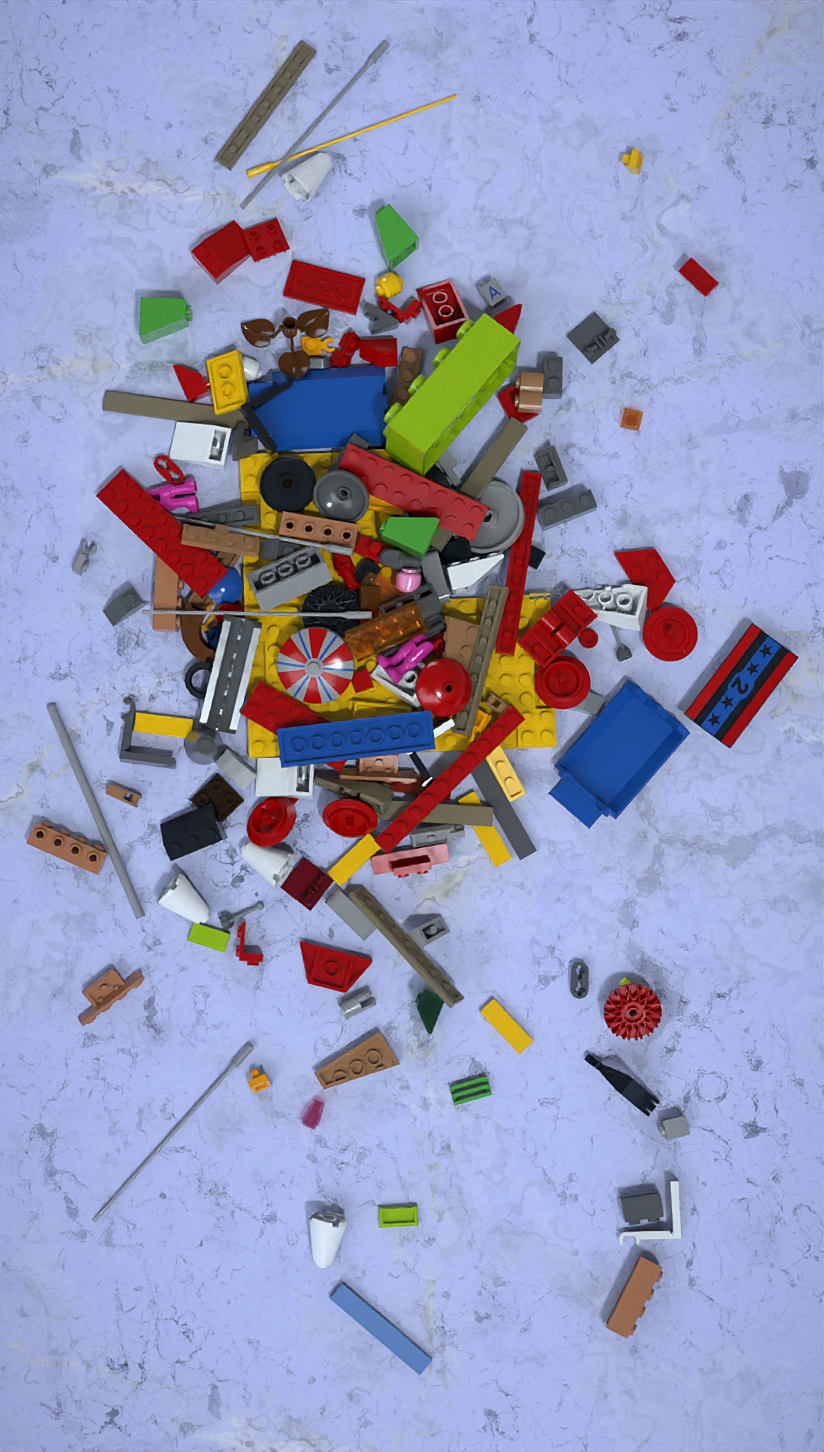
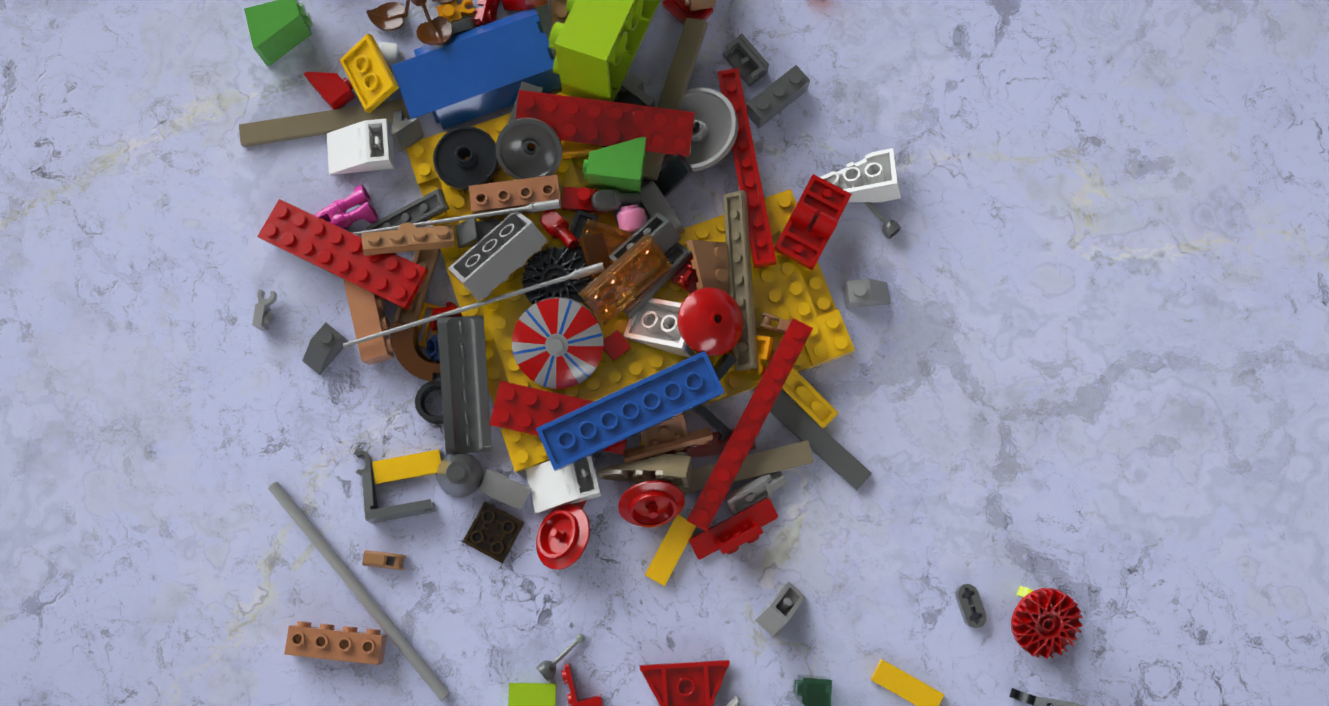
camera: 15 degrees left, 5 degrees down
(172, 468) = (335, 183): red beam -> none
(184, 900) = (489, 661): white cone -> none
(192, 831) = (475, 578): black slope -> none
(228, 589) = (434, 291): blue dish -> none
(254, 404) = (399, 89): black hinge -> none
(269, 862) = (574, 585): white cone -> none
(307, 884) = (625, 595): dark red hinge -> none
(350, 914) = (687, 614): light grey beam -> none
(370, 709) = (635, 373): yellow tile -> none
(406, 947) = (765, 634): dark tan tile -> none
(411, 652) = (662, 295): dark pink piece -> none
(467, 576) = (692, 197): white slope -> none
(488, 835) = (811, 474): yellow tile -> none
(536, 557) = (762, 156): black tile -> none
(542, 584) = (779, 182): clear piece -> none
(563, 683) = (839, 277): red piece -> none
(588, 638) = (847, 225): red tile -> none
(616, 755) = (923, 340): blue panel -> none
(647, 570) = (884, 132): red wing -> none
(670, 634) = (934, 191): red piece -> none
(740, 686) = (1031, 222): hinge -> none

